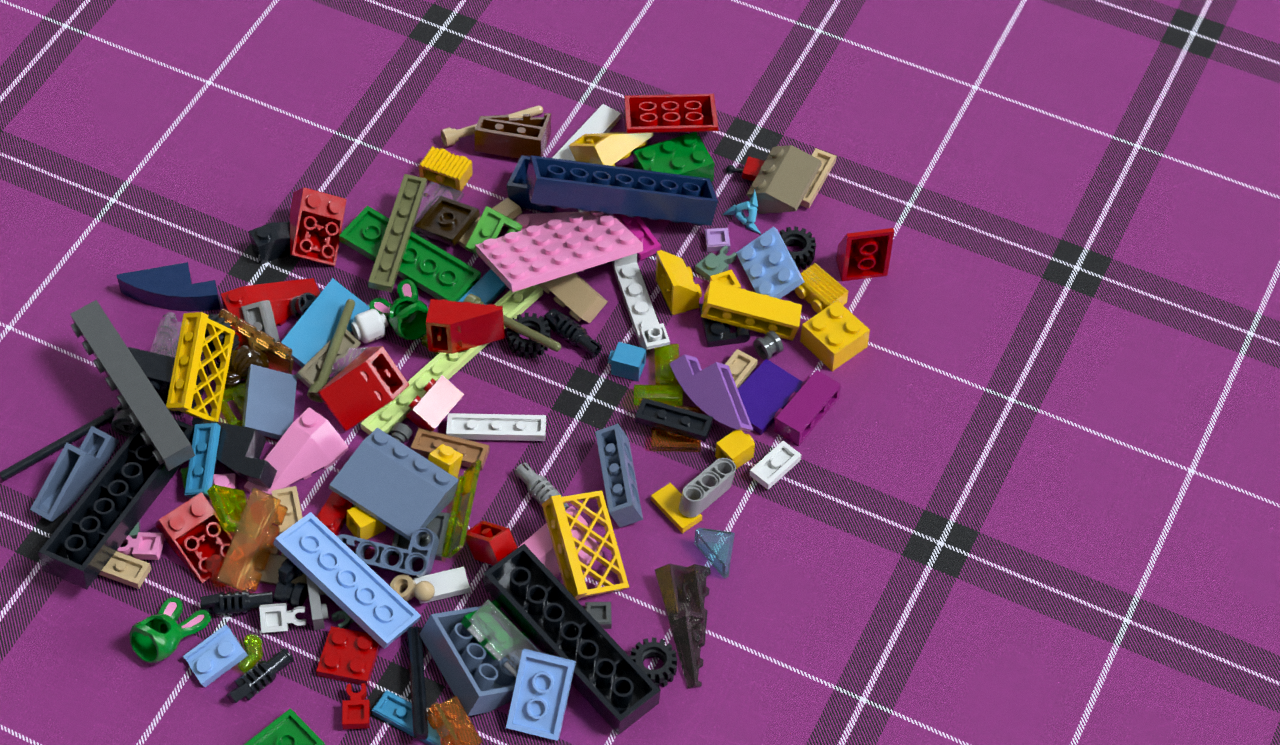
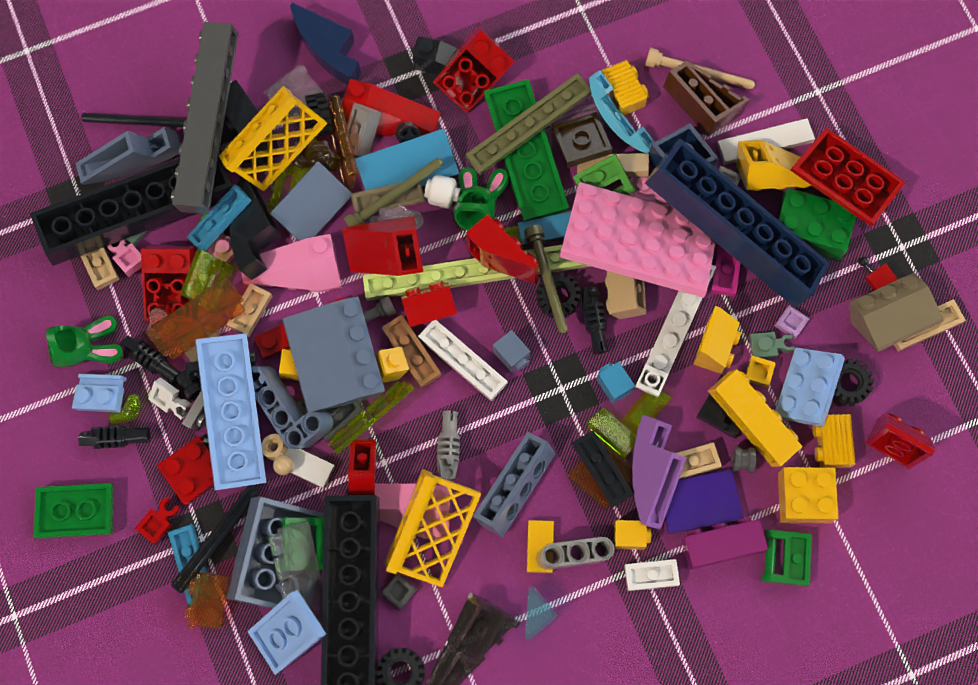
camera: 45 degrees right, 20 degrees up
(488, 193) = (614, 118): none -> medium azure slope
(530, 395) = (512, 352): none -> sand blue brick
(738, 210) = (844, 316): medium azure piece -> none
(865, 382) = (795, 558): none -> green plate

